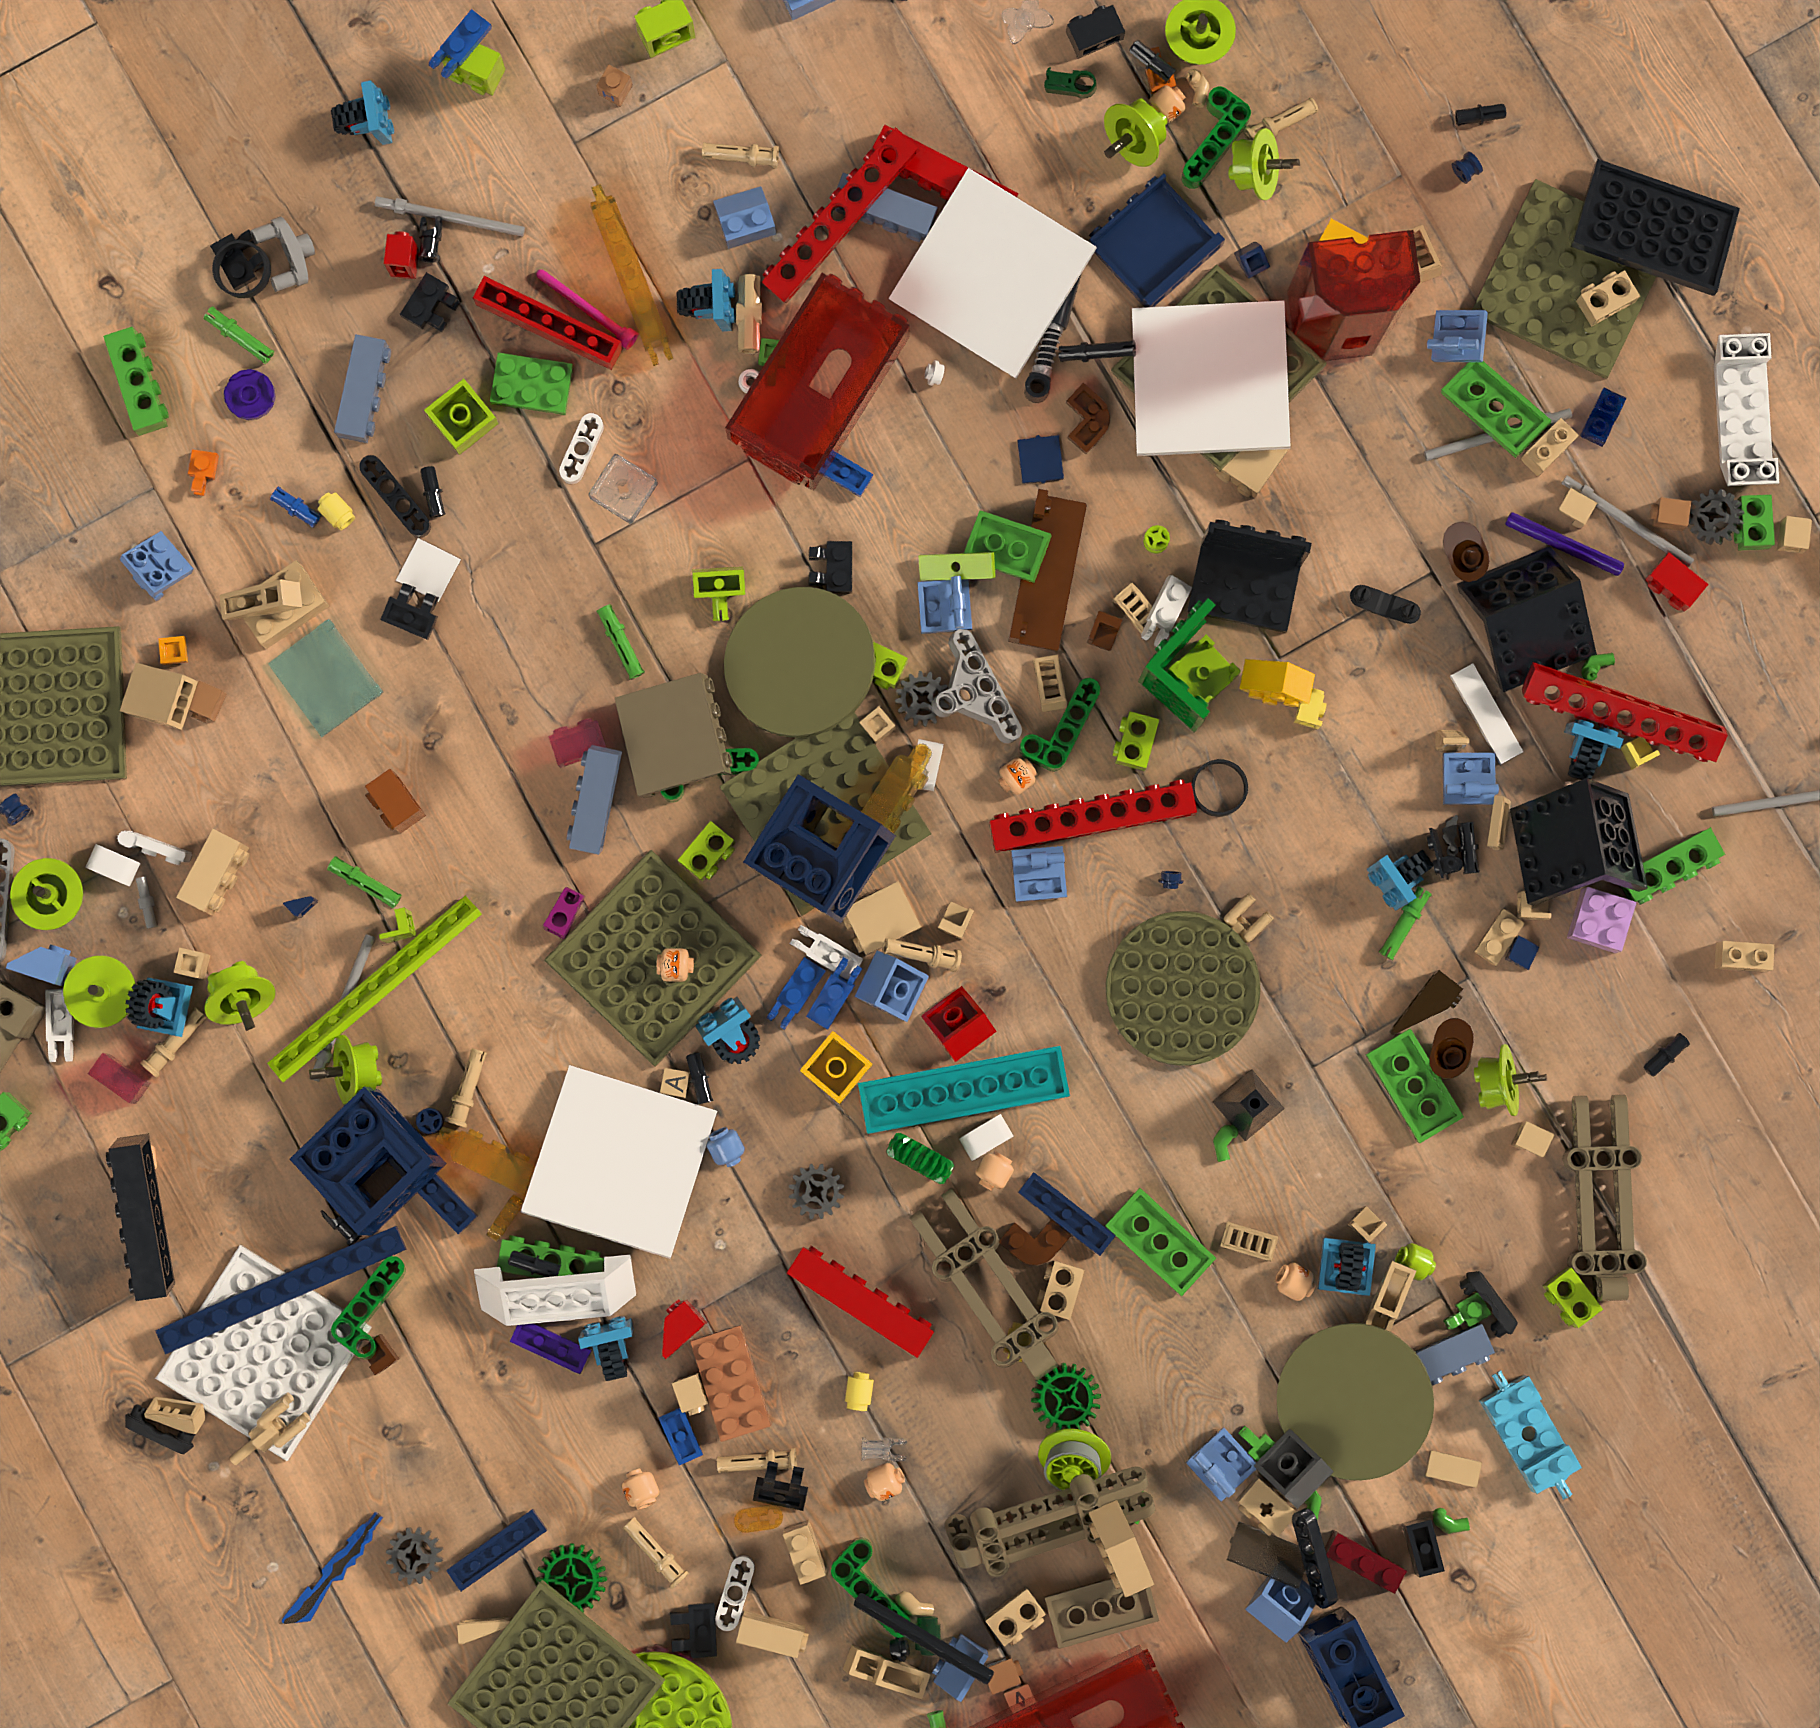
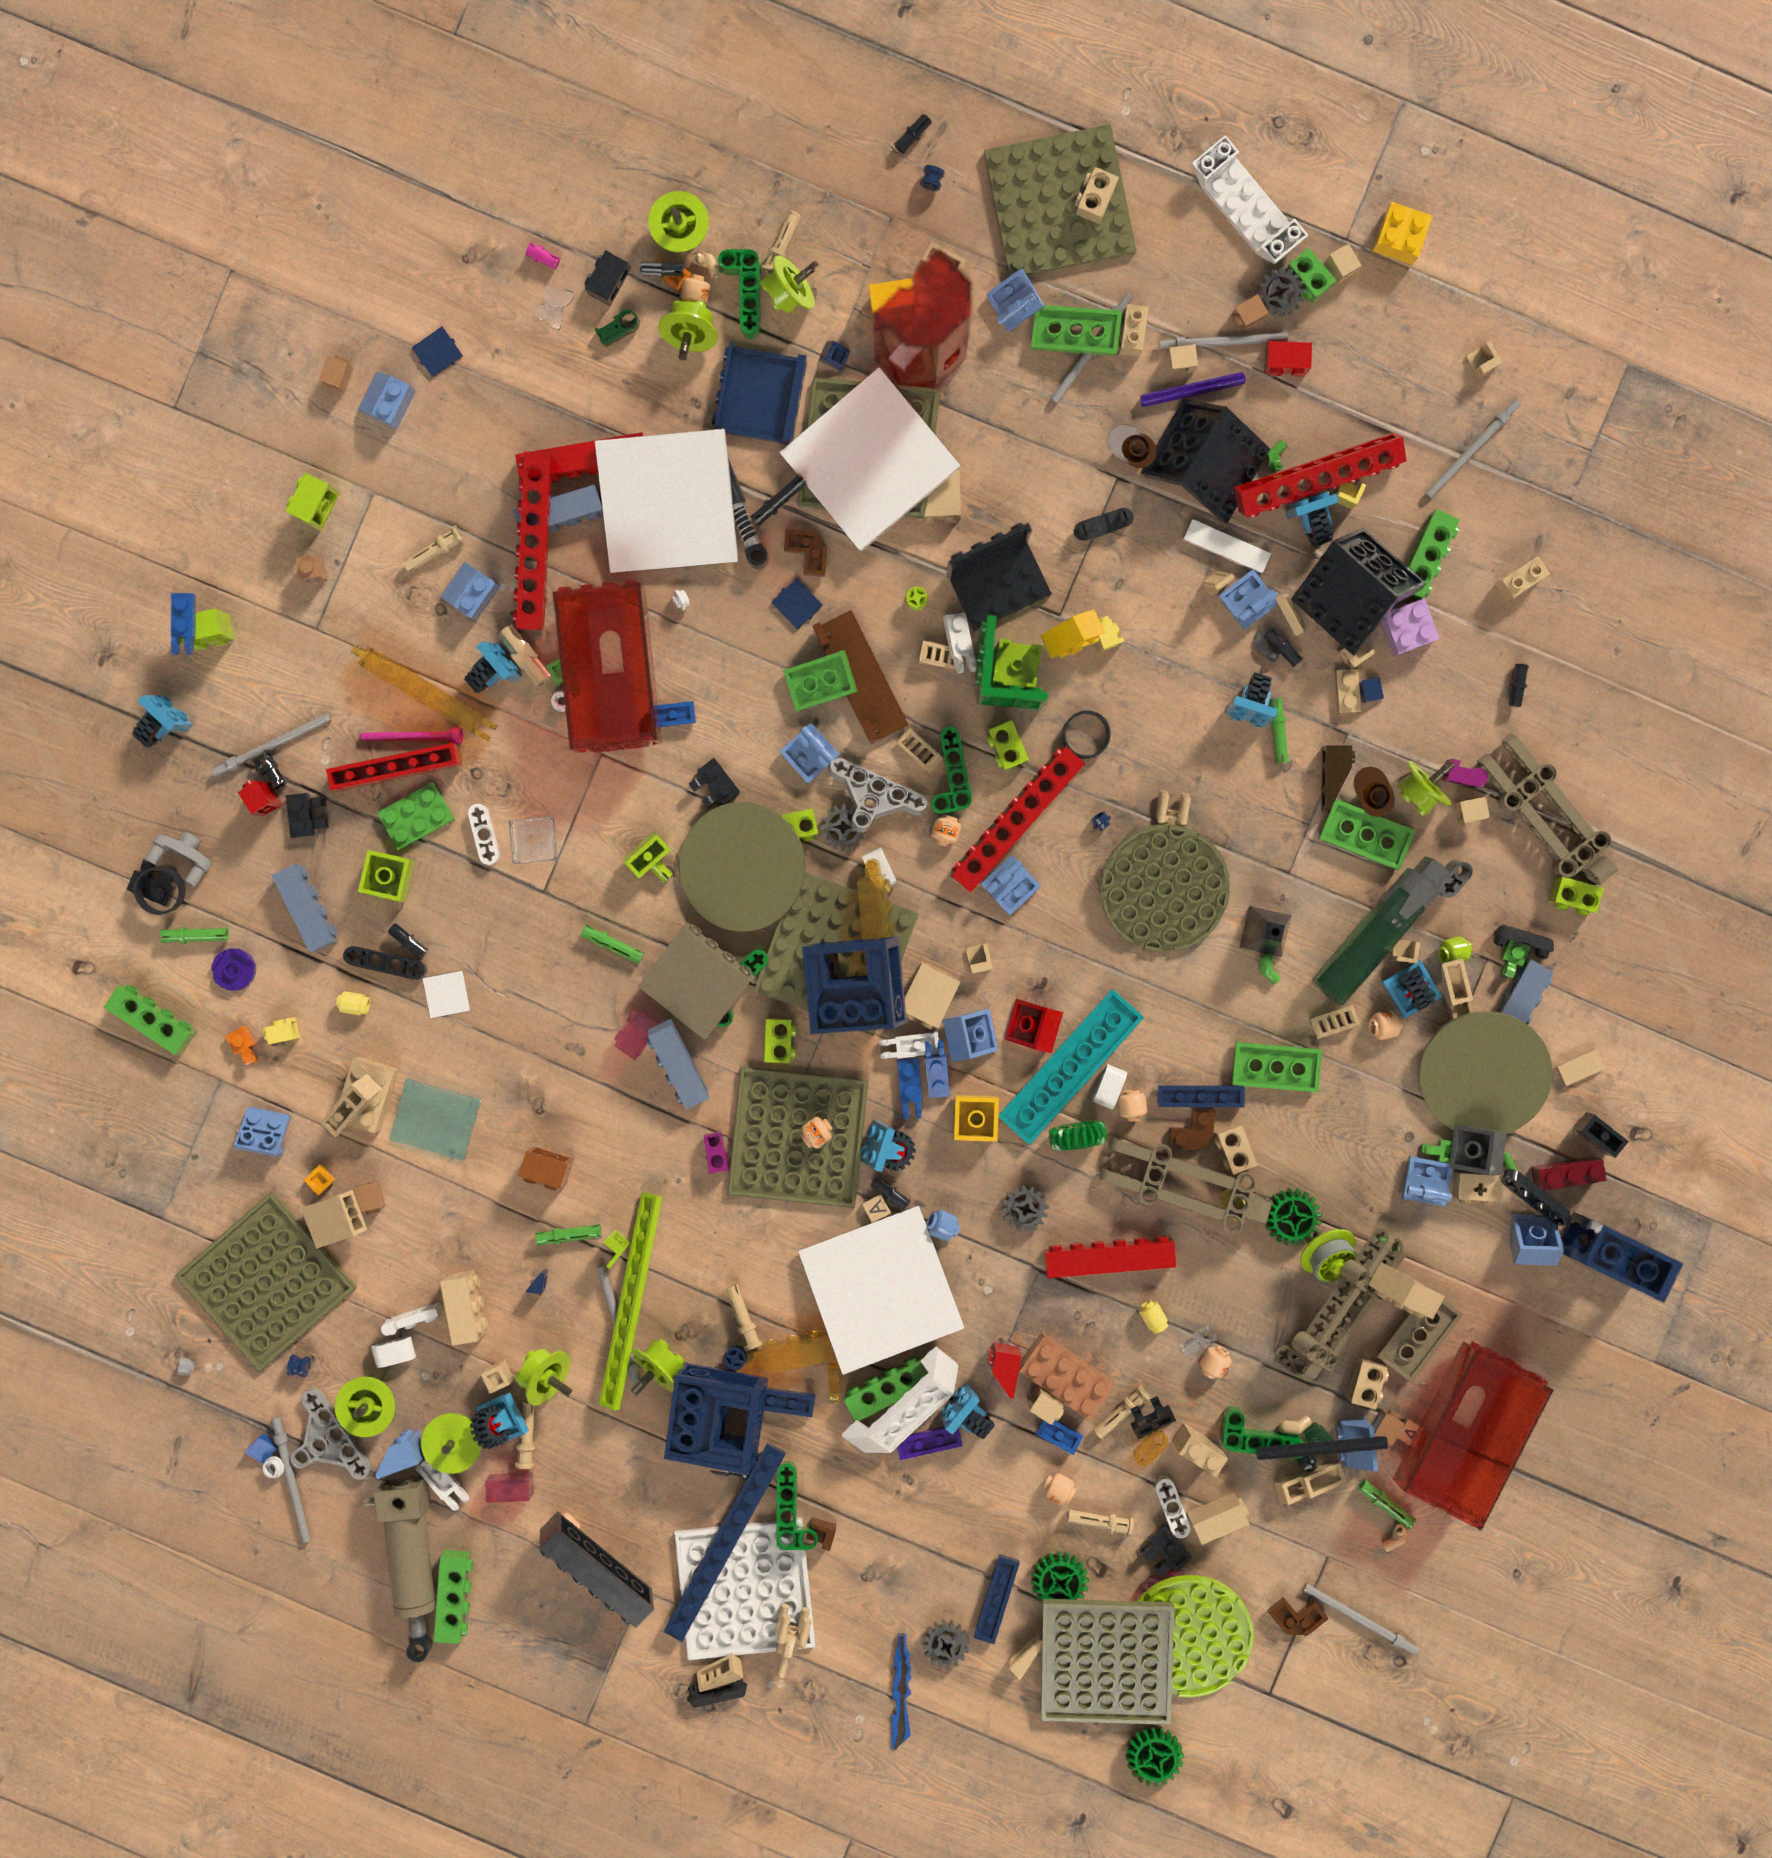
camera: 30 degrees left, 5 degrees up
(146, 902) = (435, 1358): light grey bar -> none
(248, 485) = (281, 1031): none -> light yellow brick
(295, 507) = (324, 1021): blue pin -> none
(408, 617) = (460, 1036): black plate -> none
(533, 1264) = (878, 1401): black axle -> none
(877, 725) = (827, 869): tan panel -> none
(932, 955) = (983, 994): tan pin -> none
(942, 566) = (788, 728): lime tile -> none
(1104, 631) = (929, 687): reddish brown panel -> none
(1266, 1555) = (1501, 1218): clear smoke piece -> none
(1367, 1185) = (1387, 925): none -> clear green piece
(1442, 865) = (1276, 672): black hinge -> none
(1447, 1524) = (1604, 1106): bright green arm -> none
(1545, 1458) = (1635, 1015): medium azure brick -> none
(1550, 1102) = (1465, 776): none -> magenta leg
(1603, 417) = (1153, 281): clear blue slope -> none
(1655, 227) = (1092, 120): black plate -> none

